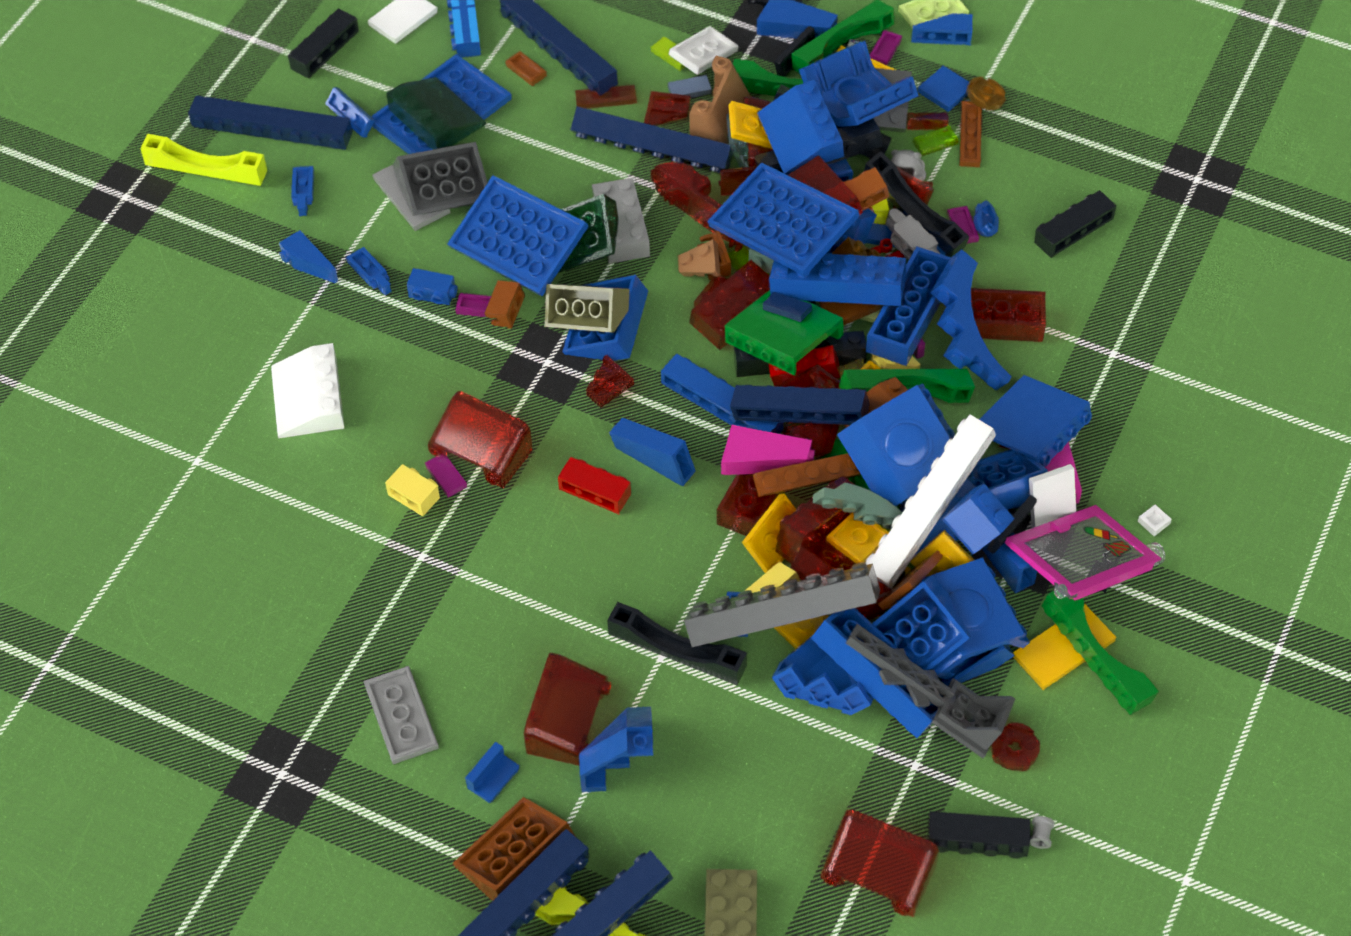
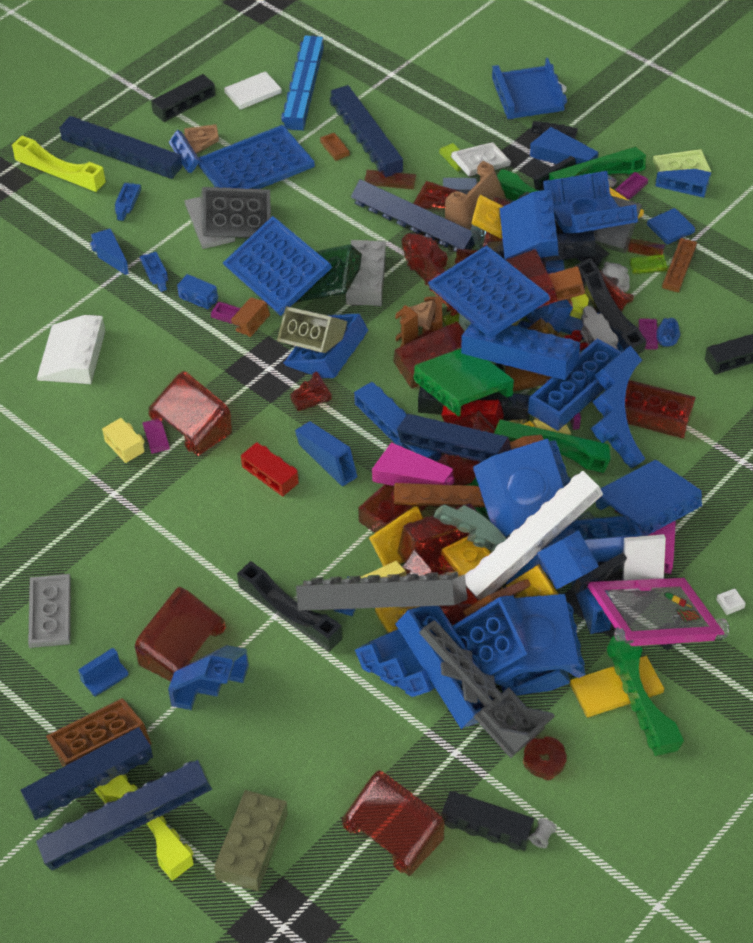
camera: 15 degrees right, 5 degrees down
(364, 89) = (201, 137): none -> medium nougat wing
(433, 112) = (247, 162): clear green slope -> none
(694, 276) = (408, 324): none -> dark orange hinge
(787, 307) = (470, 361): dark blue tile -> none
(986, 93) = (703, 236): pearl gold tile -> none

